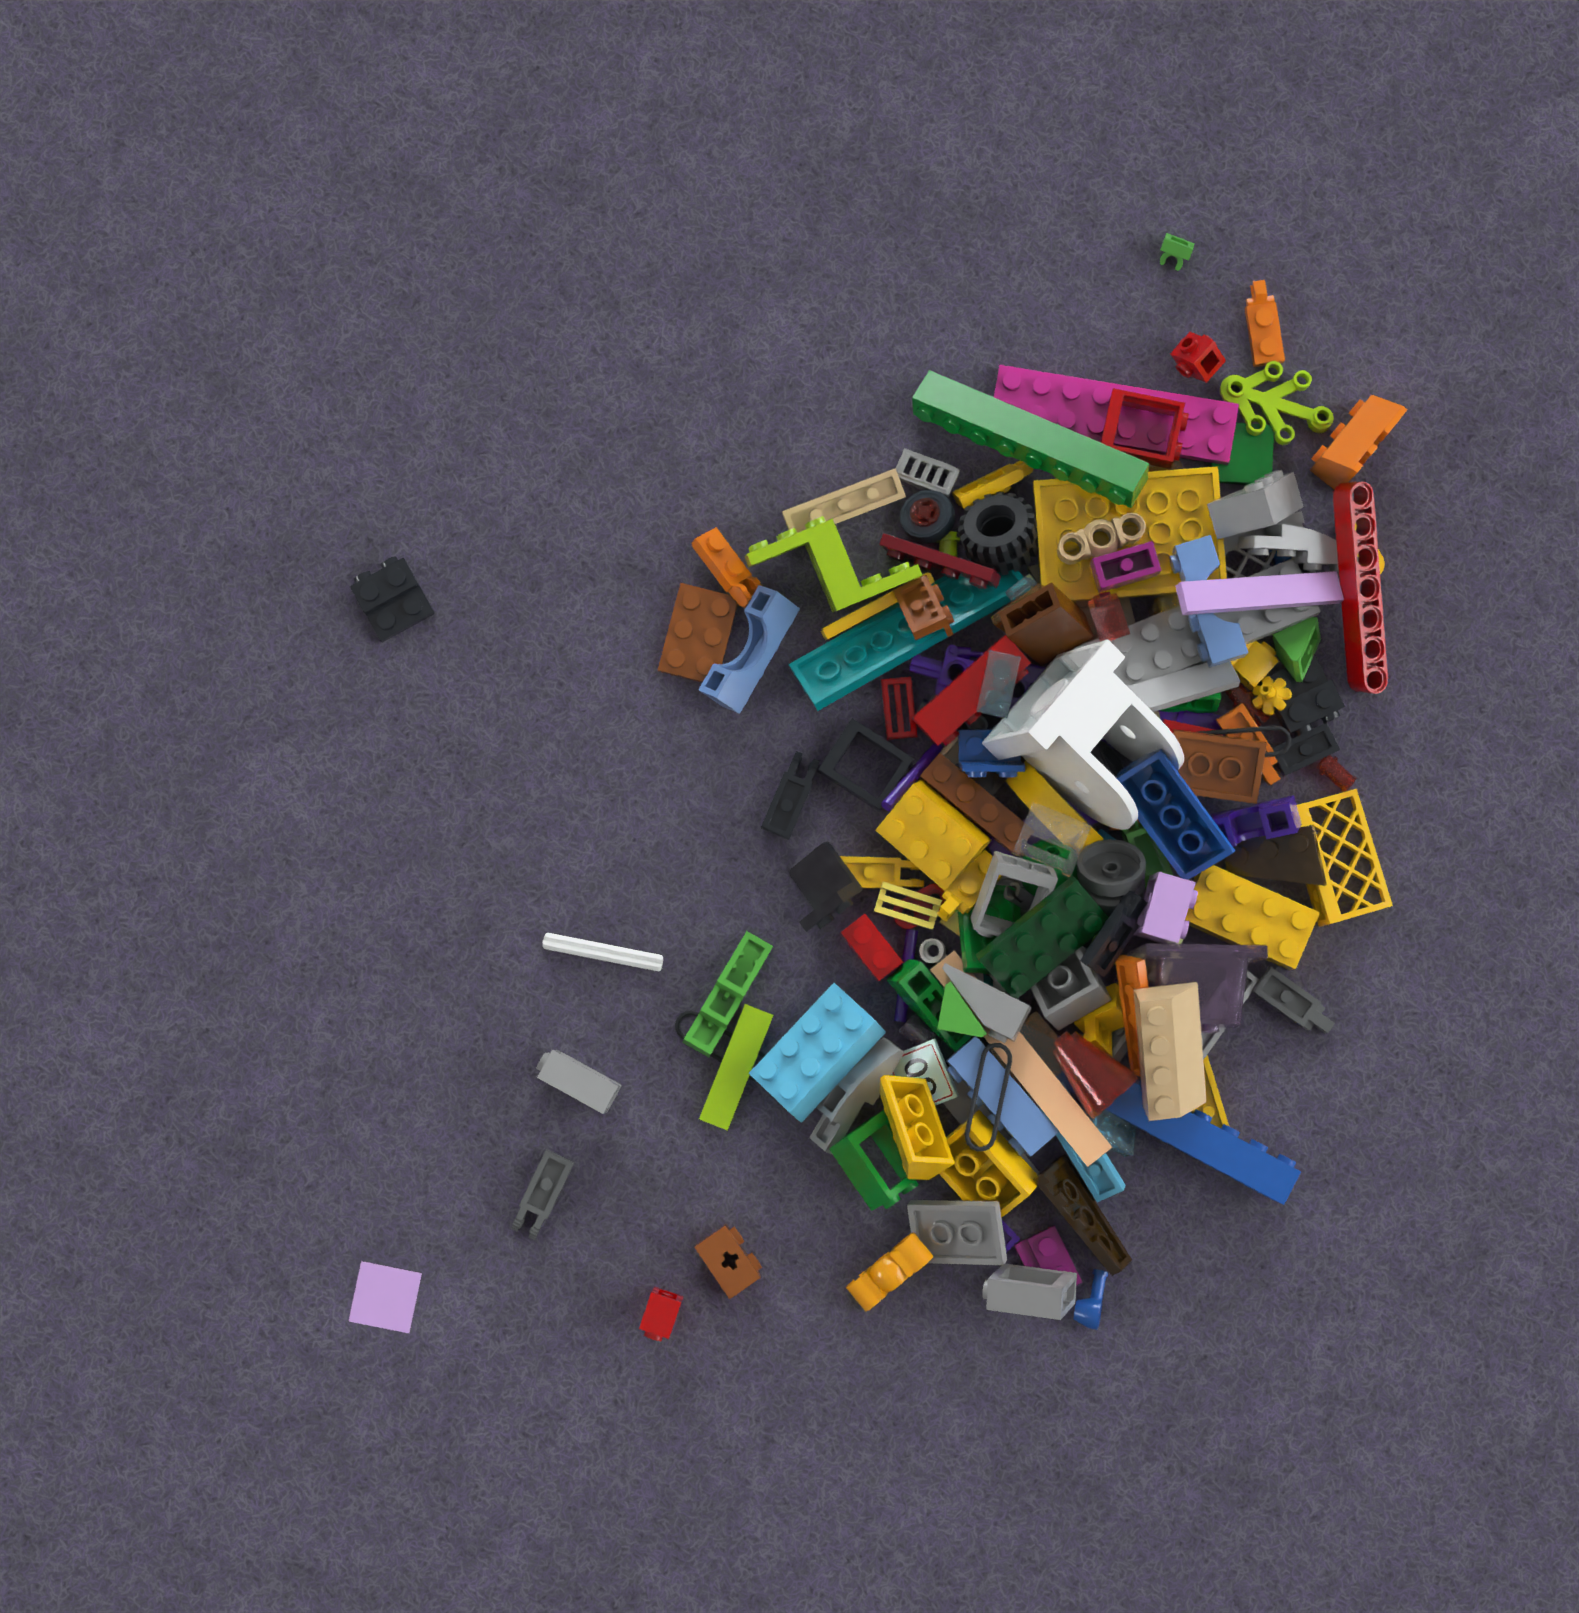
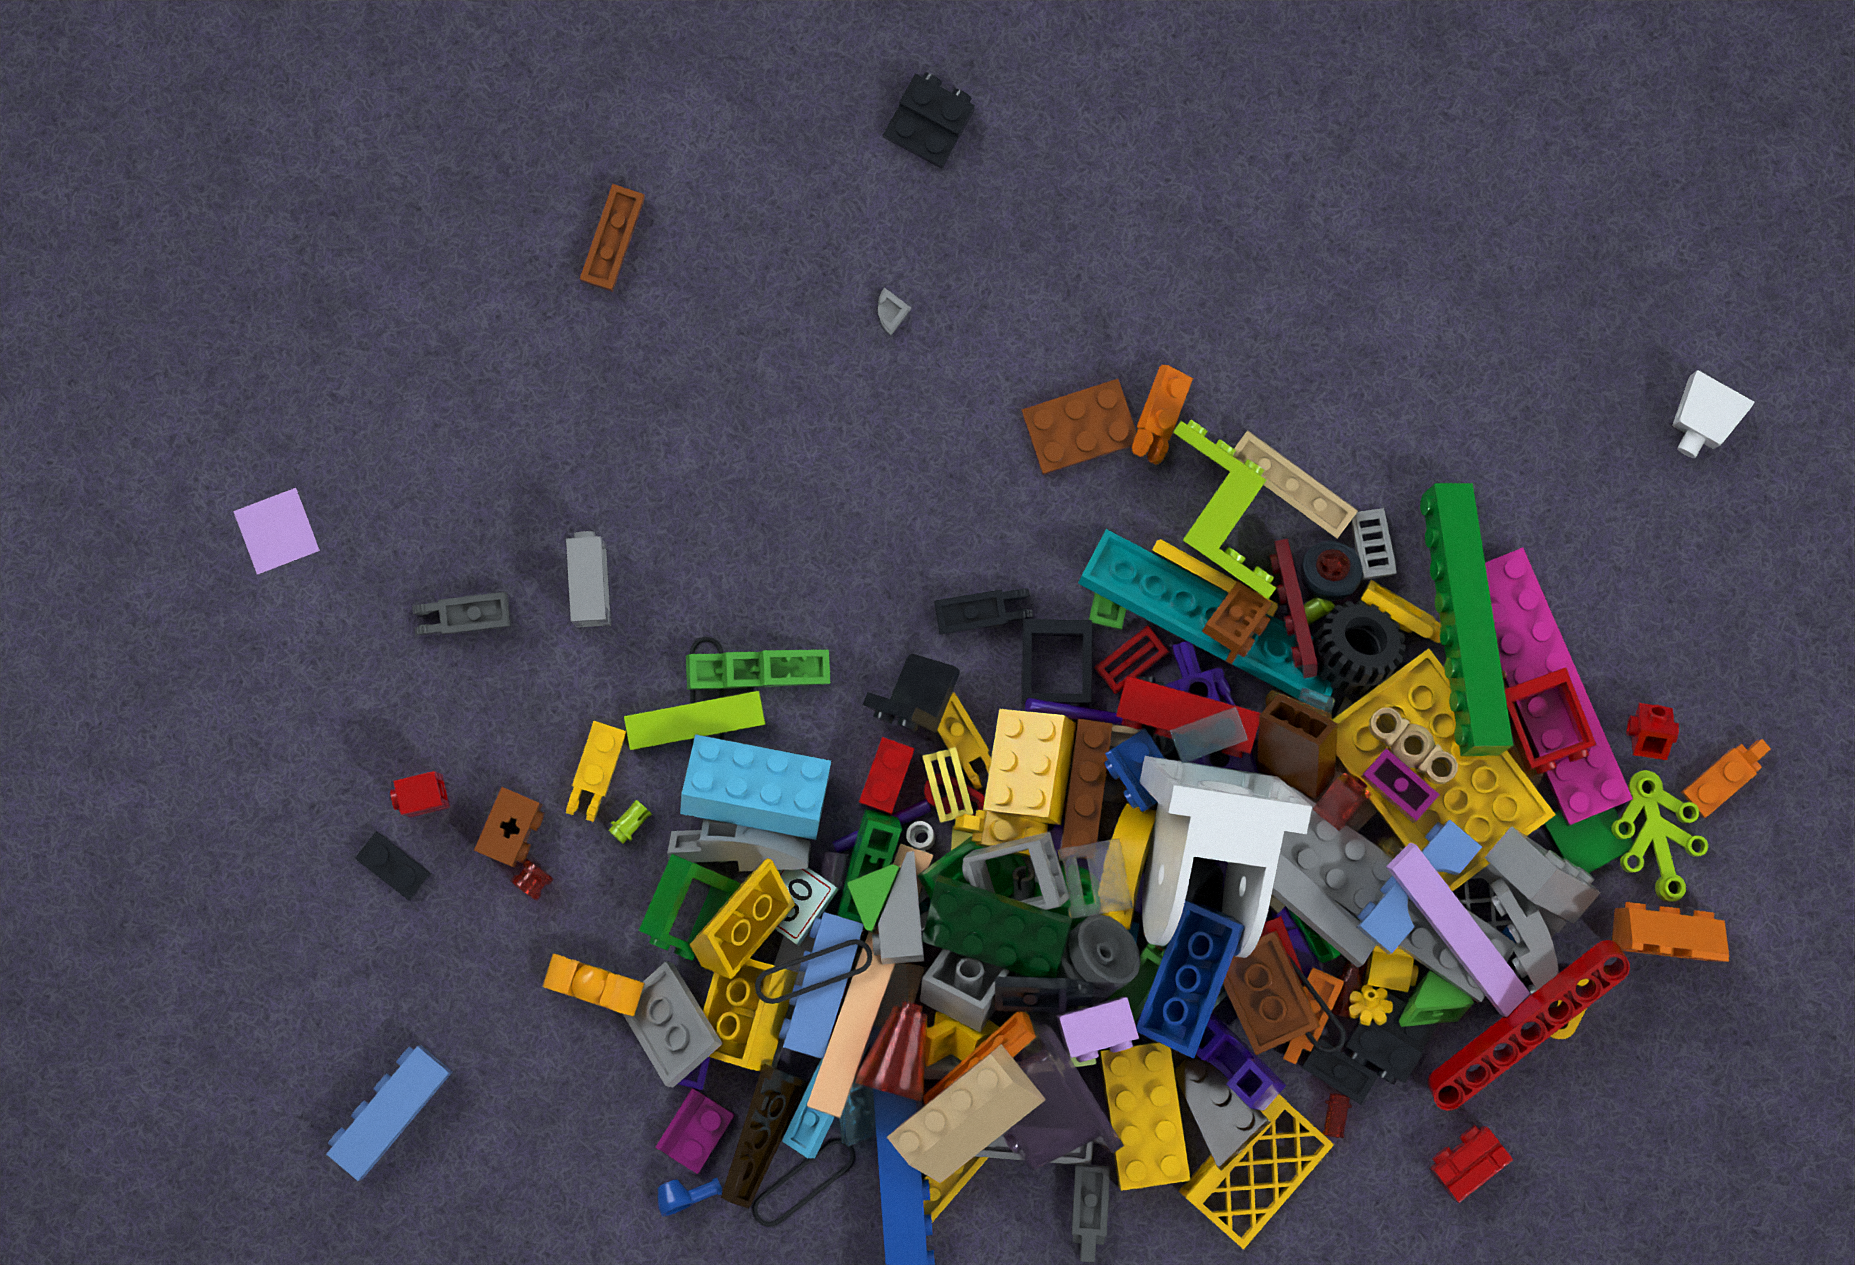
camera: 50 degrees right, 0 degrees up
(326, 896) = (612, 237): none -> dark orange plate
(519, 720) = (891, 311): none -> light grey tile
(603, 952) = (723, 527): white axle -> none
(700, 1368) = (393, 865): none -> black plate
(723, 1164) = (596, 766): none -> yellow hinge
(768, 620) = (1135, 484): medium blue arch -> none
(779, 1268) = (532, 879): none -> clear red wheel
(782, 1165) = (629, 822): none -> lime pin
(851, 704) = (1106, 612): none -> bright green tile
(888, 1491) = (389, 1112): none -> medium blue brick
(986, 165) = (1708, 413): none -> white torso
(1030, 1291) = (657, 1127): light grey window -> none
(1151, 1208) = (812, 1194): none -> black piece
(1176, 247) = (1747, 645): bright green tile -> none
(1432, 696) = (1470, 1162): none -> red brick

